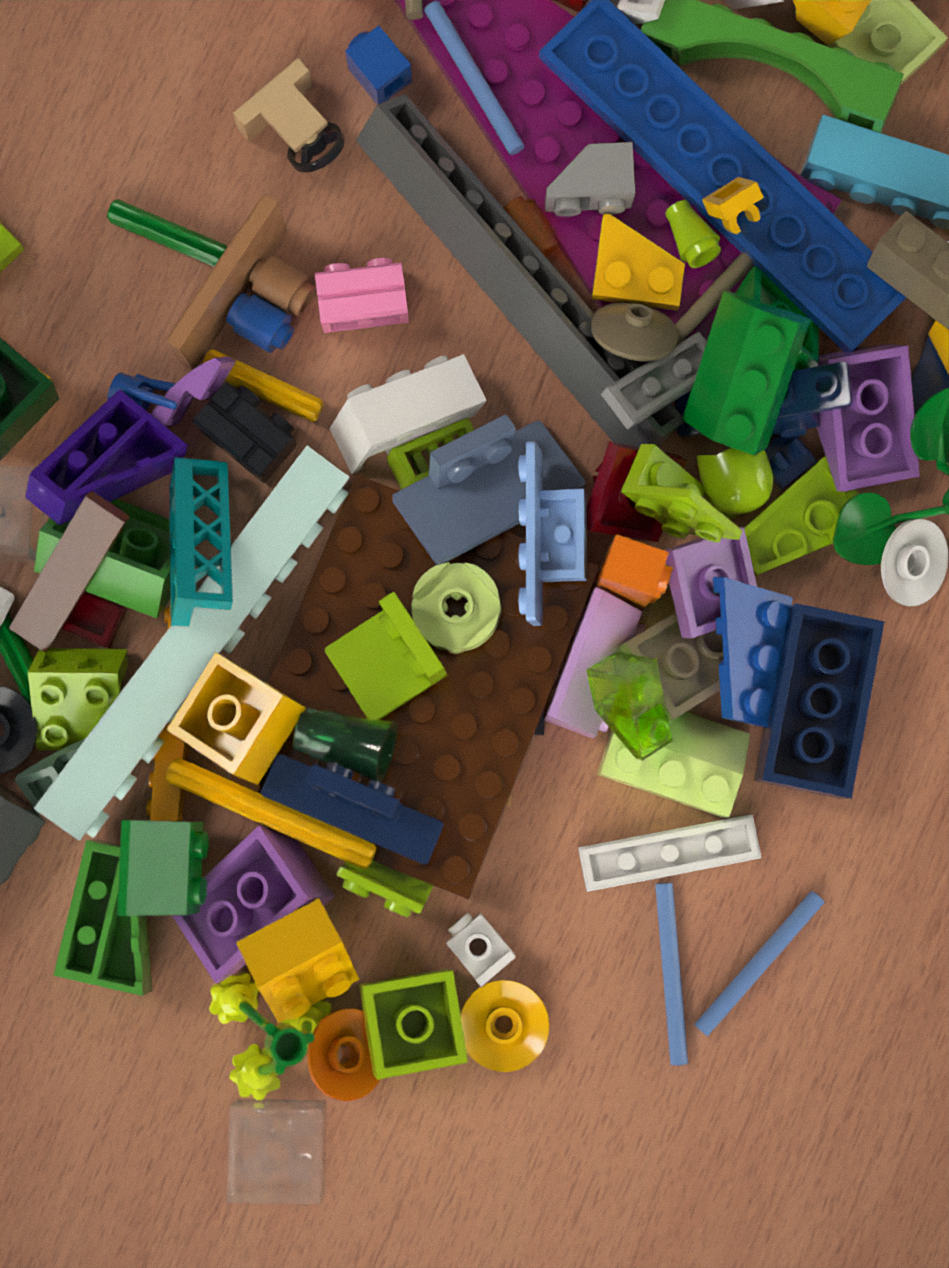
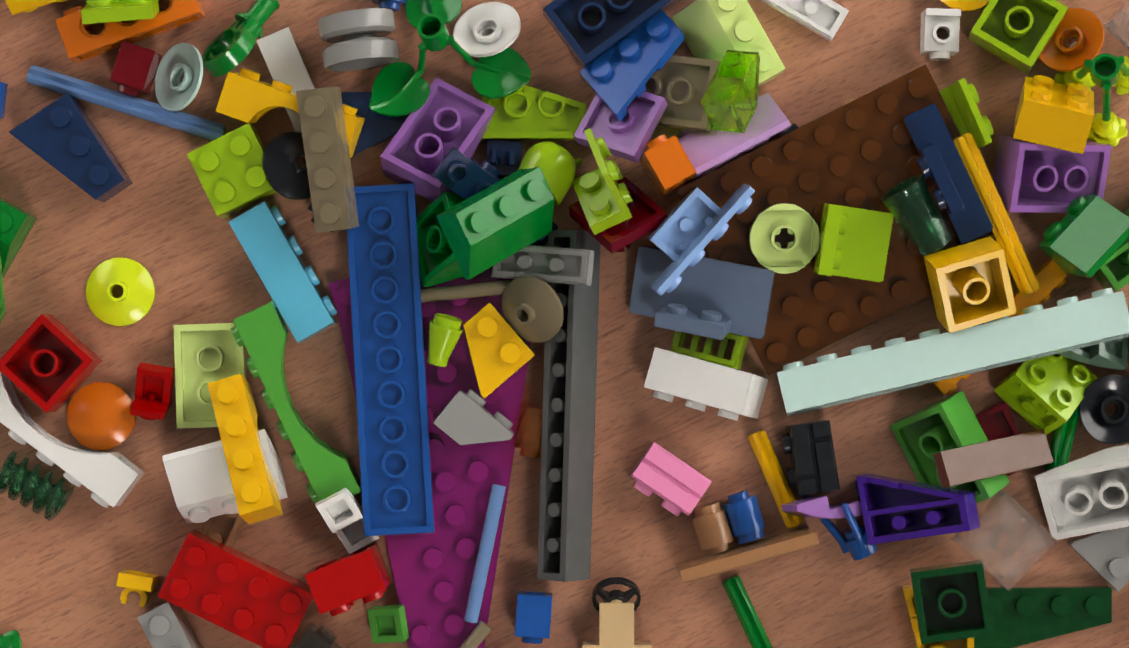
camera: 130 degrees left, 5 degrees up
(183, 541) = (911, 416): teal fence -> none
(731, 200) = (406, 333): yellow tile -> none

